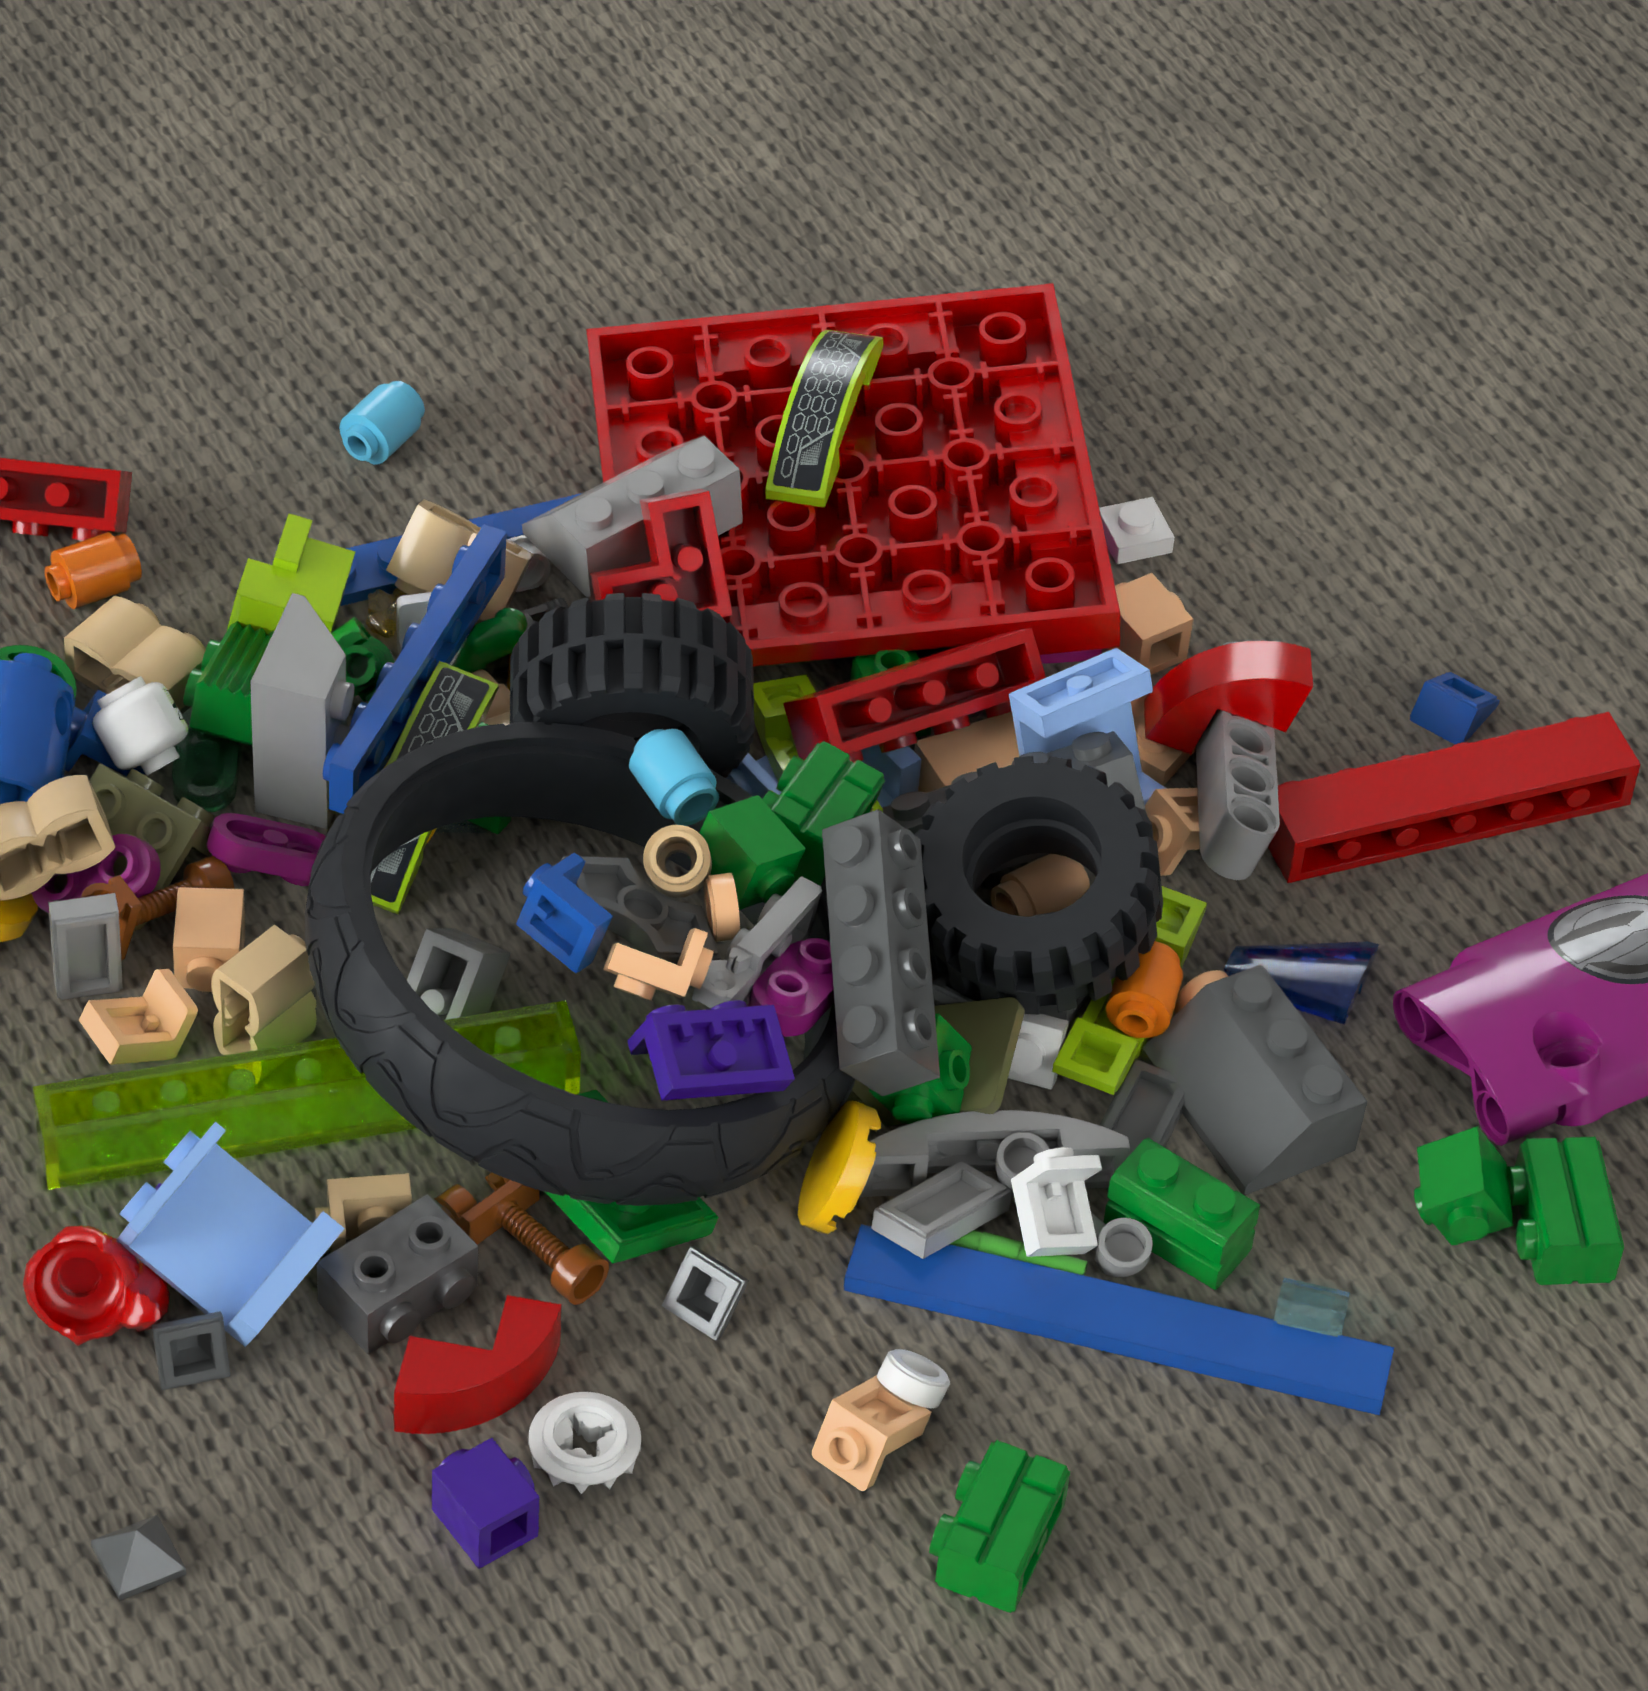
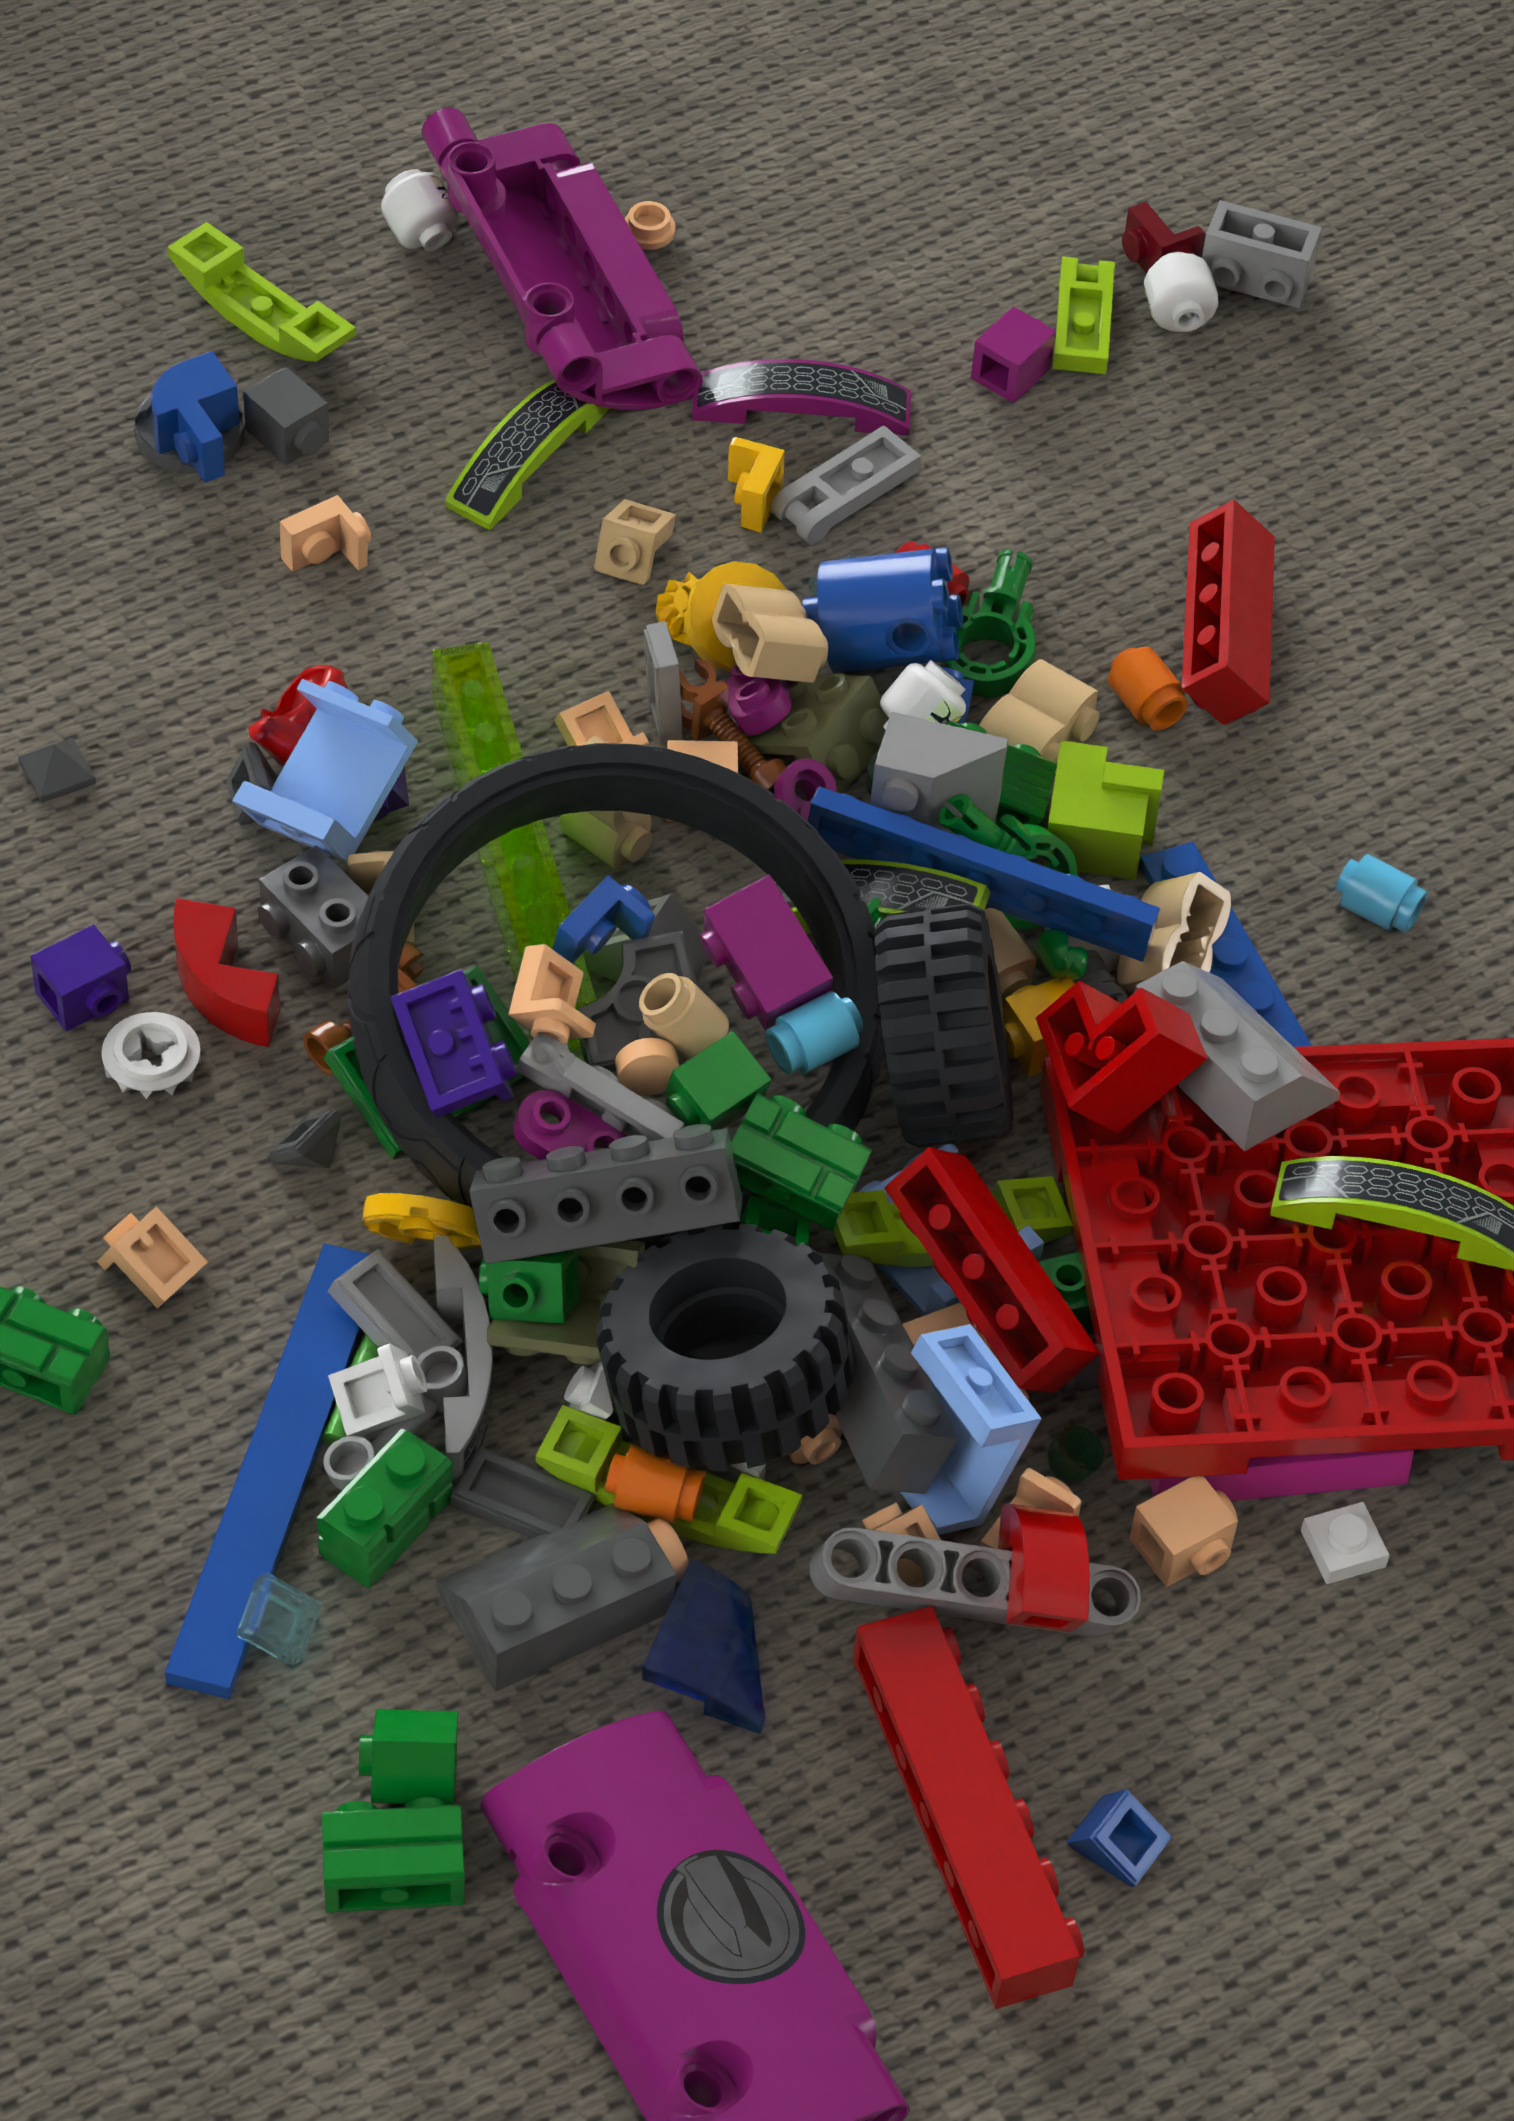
camera: 90 degrees right, 5 degrees up
(594, 789) = (764, 952): none -> magenta brick
(913, 1378) = (202, 1289): white tile -> none

